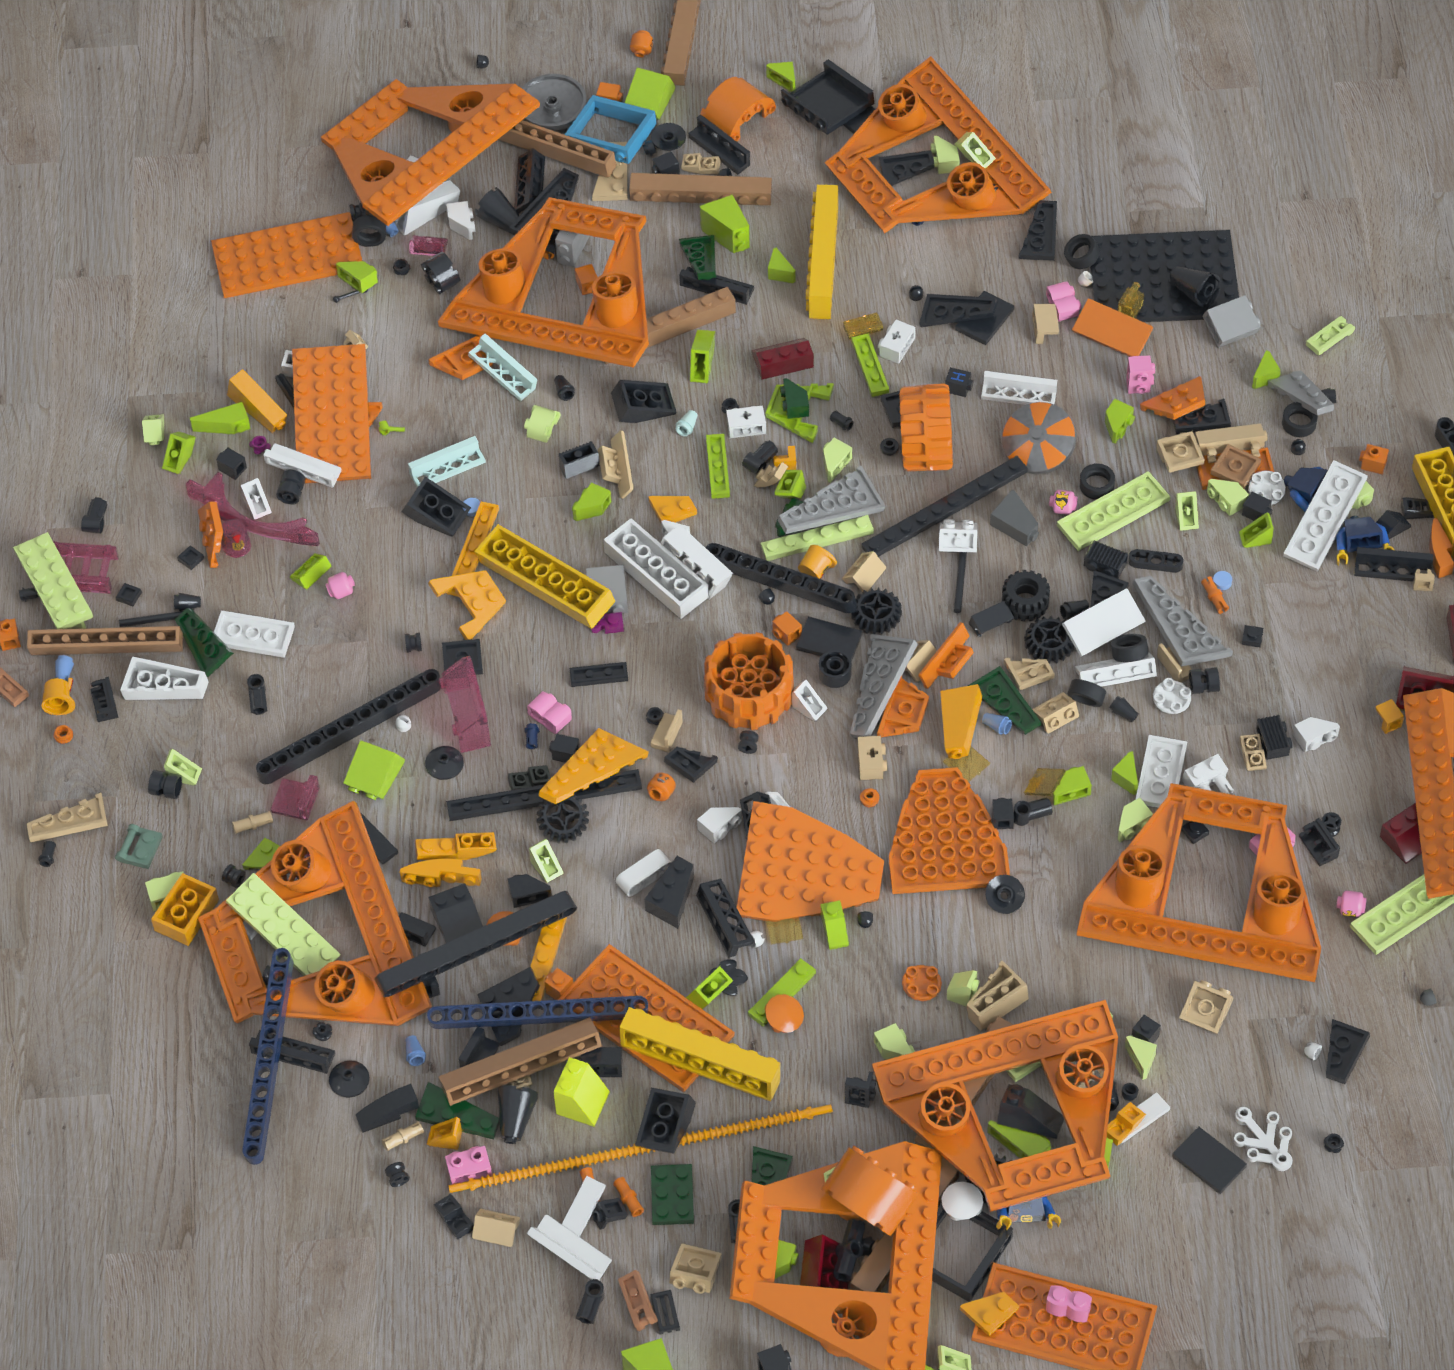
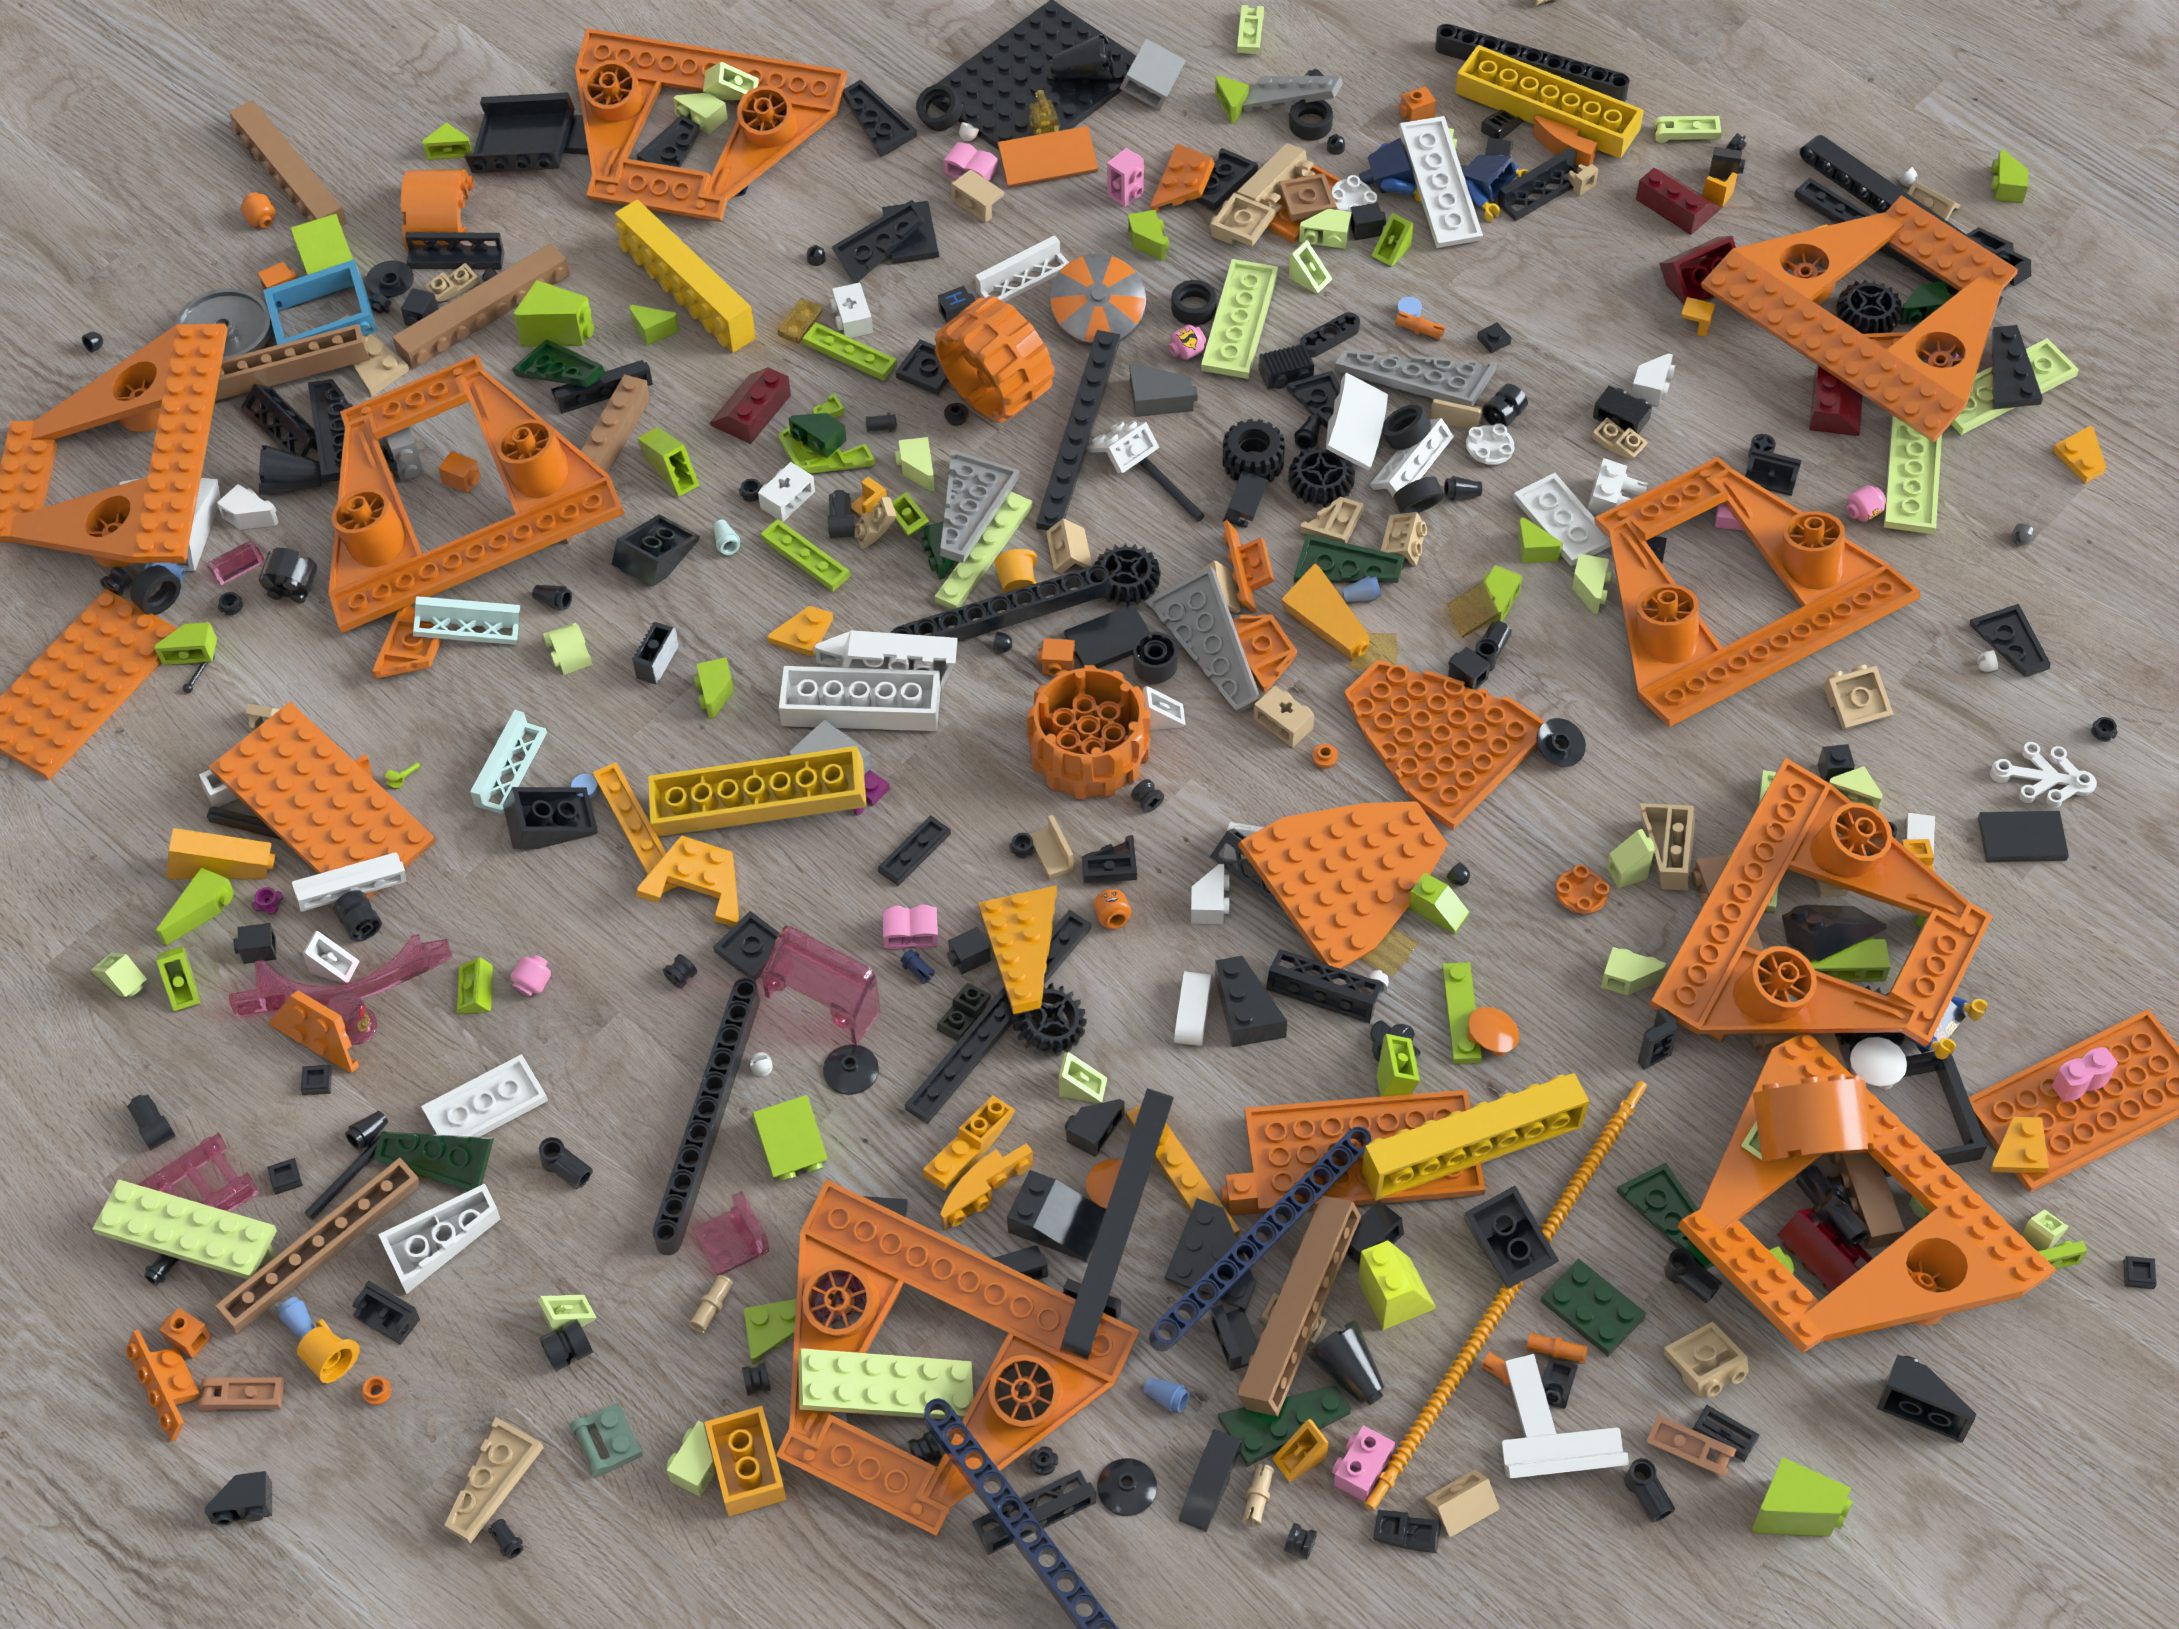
camera: 45 degrees left, 0 degrees up
(615, 464) = (700, 629): tan bracket -> none

